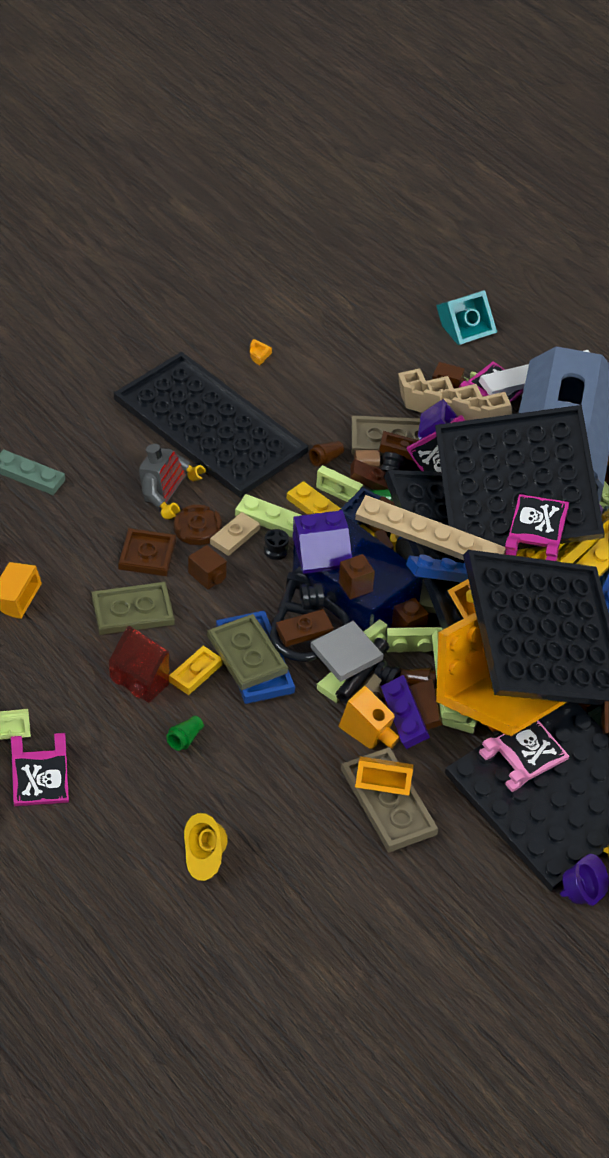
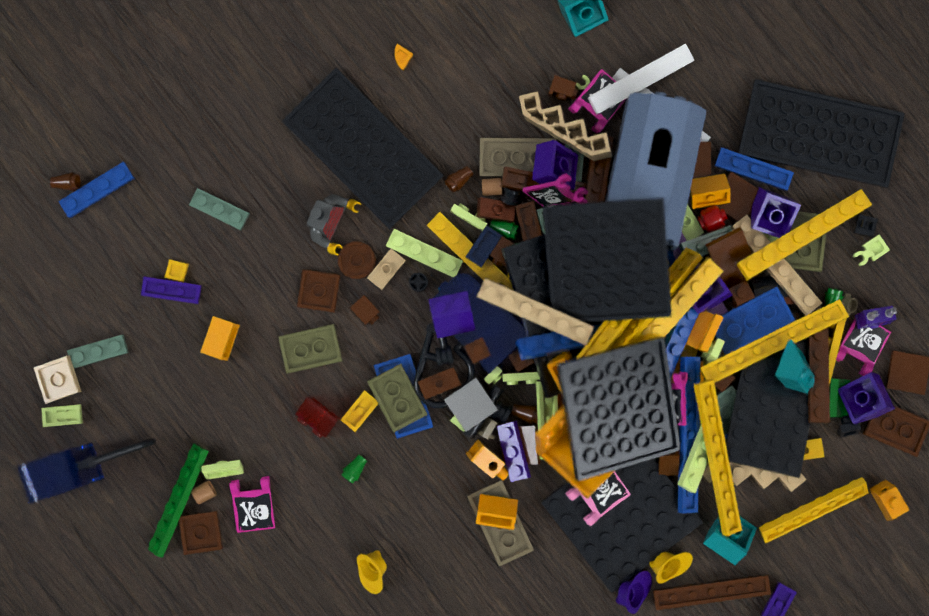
camera: 10 degrees right, 40 degrees up
(537, 523) = (620, 307): flag -> none

